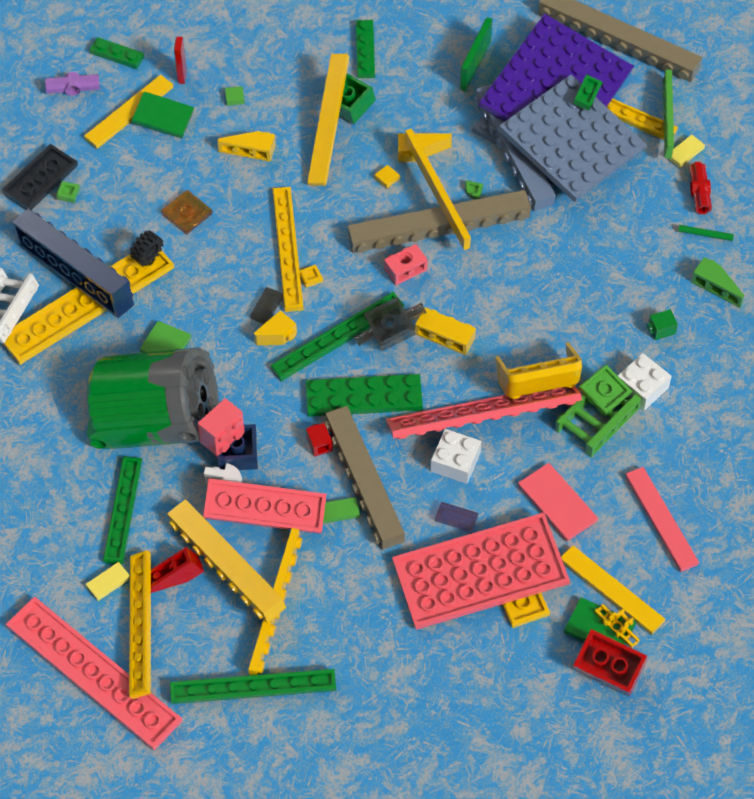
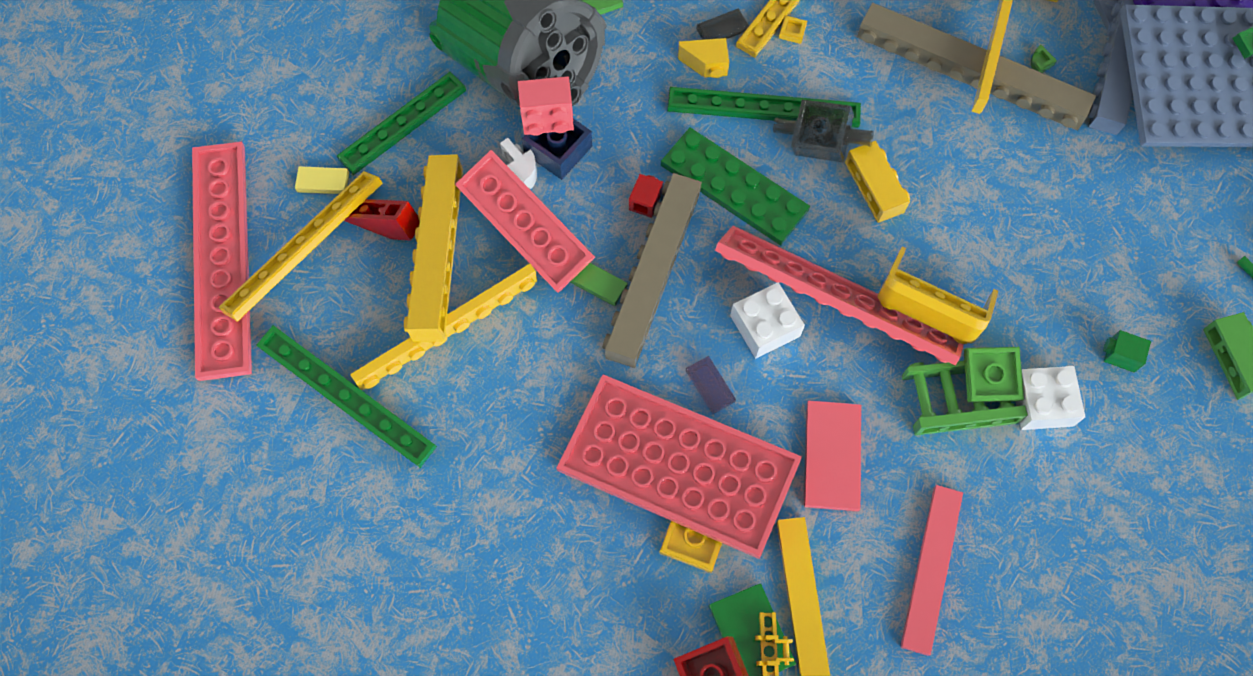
camera: 40 degrees right, 10 degrees up
(401, 272) = (908, 89): coral brick -> none

